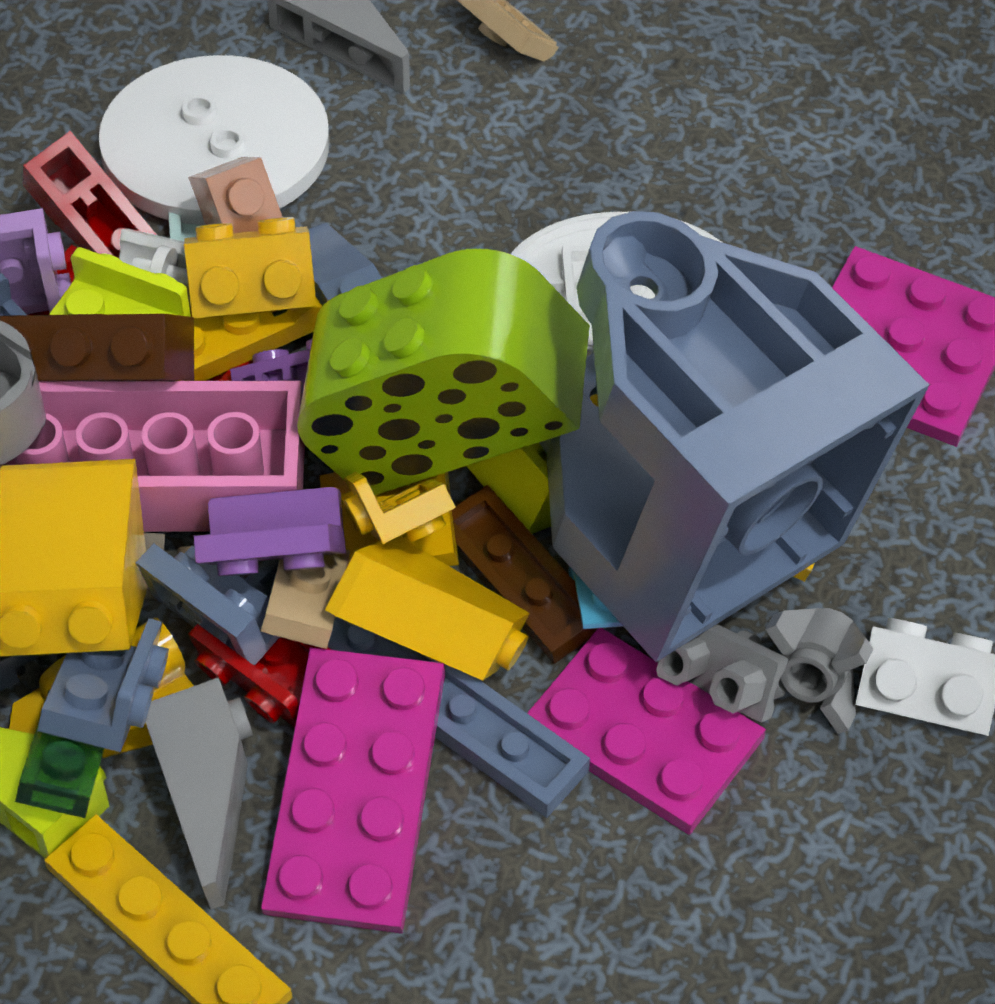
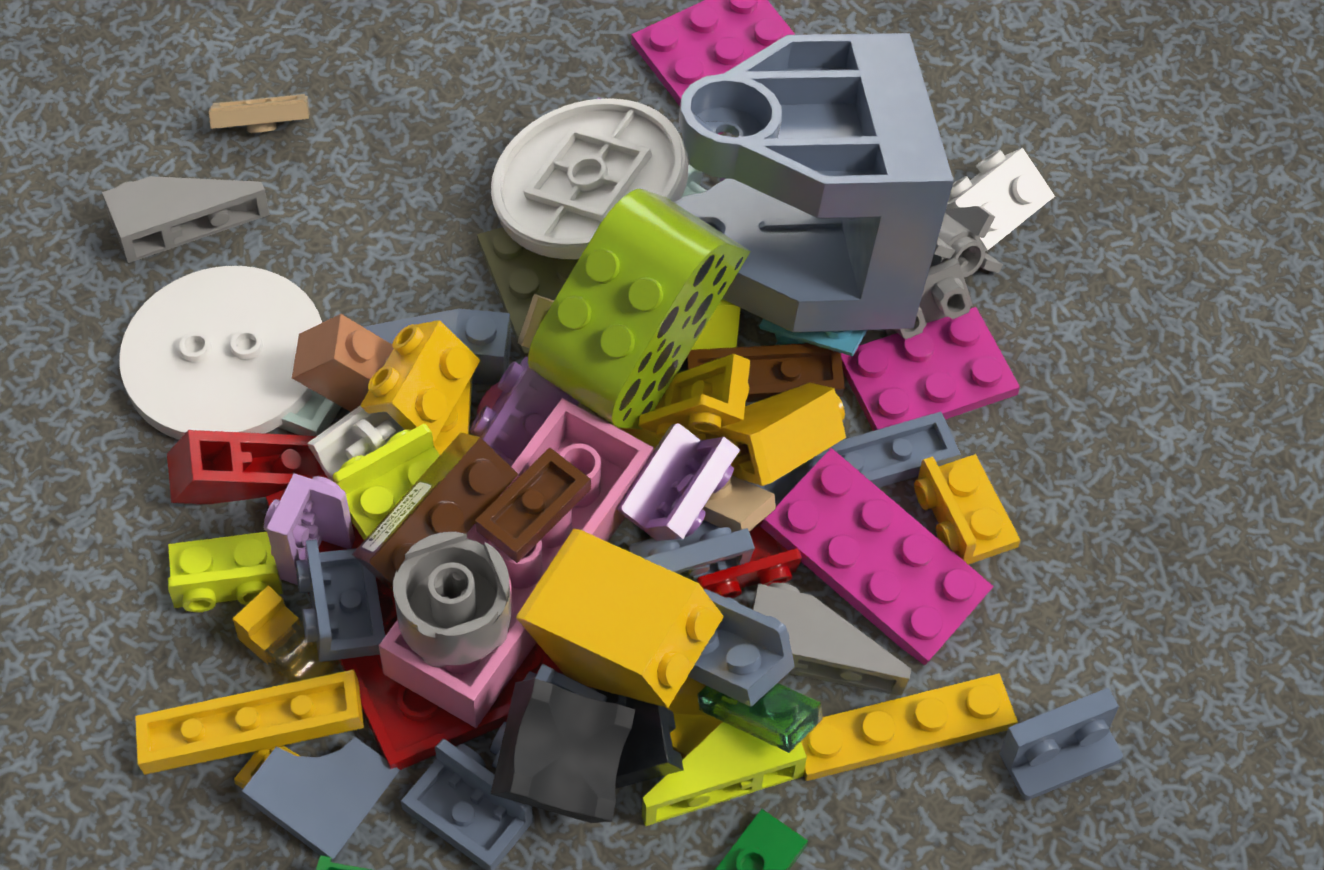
camera: 60 degrees left, 5 degrees up
(140, 412) = (533, 504): none -> reddish brown plate
(485, 850) = (966, 508): none -> yellow bracket

